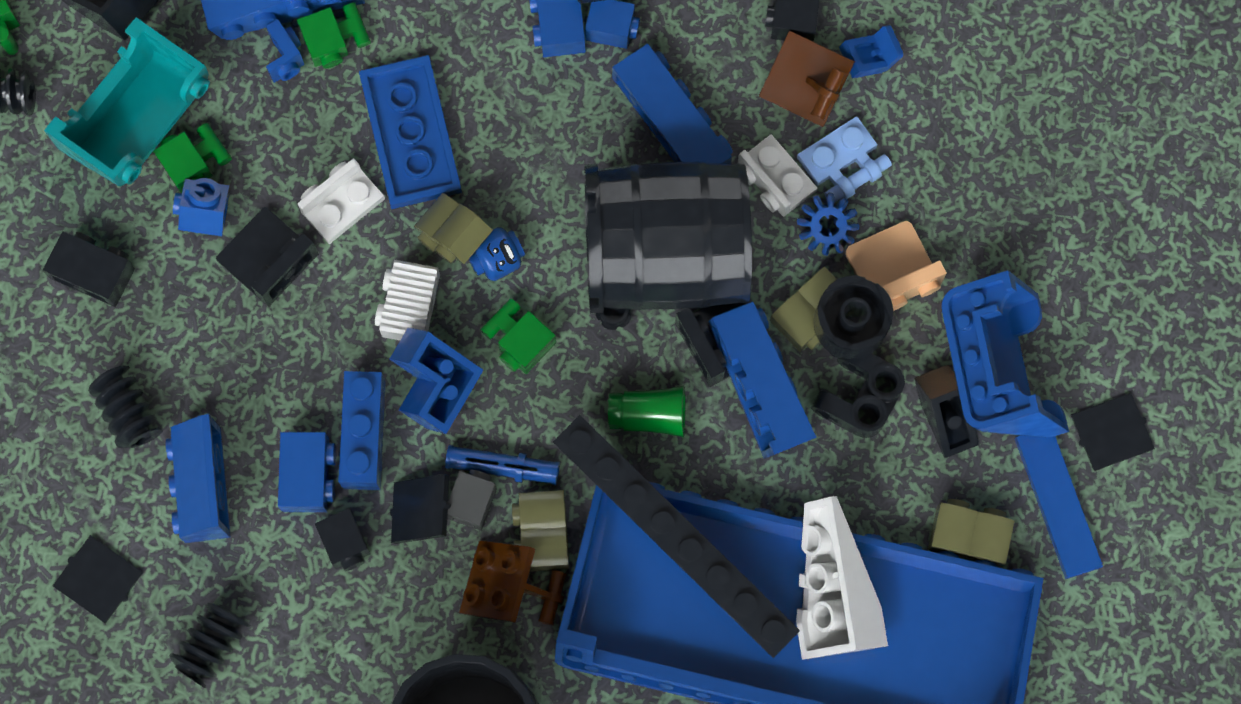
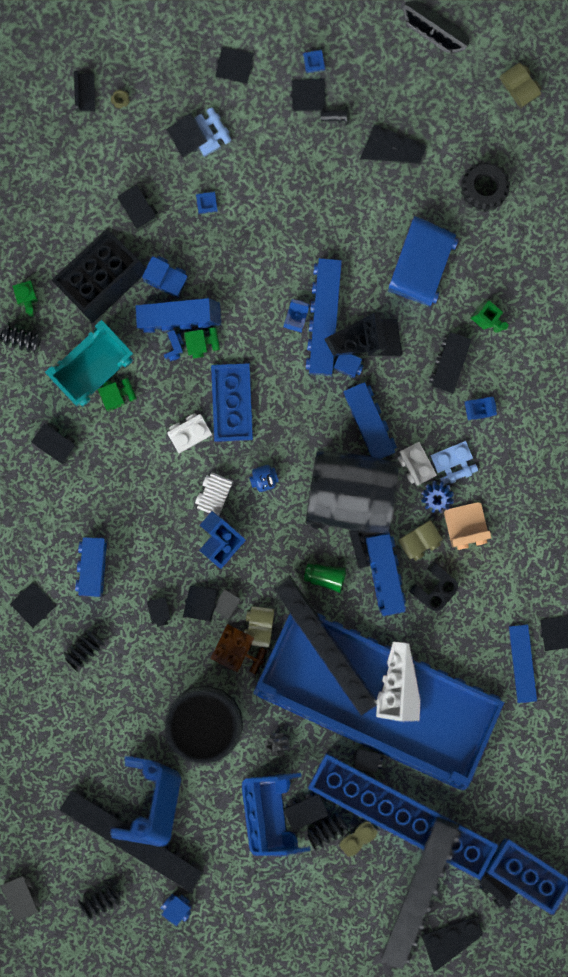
camera: 10 degrees right, 10 degrees up
(121, 408) = (60, 522): black piece -> none
(202, 206) = (117, 423): blue brick -> none
(267, 256) = (146, 454): black bracket -> none
(305, 471) = (146, 572): blue brick -> none
(362, 430) = (178, 557): blue brick -> none
(451, 230) = (243, 462): olive brick -> none
(523, 341) = (269, 527): green brick -> none
(546, 470) = (267, 595): blue pin -> none
(806, 78) = (444, 416): reddish brown plate -> none
(862, 299) = (444, 544): black brick -> none
(944, 411) = (476, 606): black slope -> none
(971, 533) = (474, 672): olive brick -> none
(987, 357) = (503, 588): blue windscreen -> none

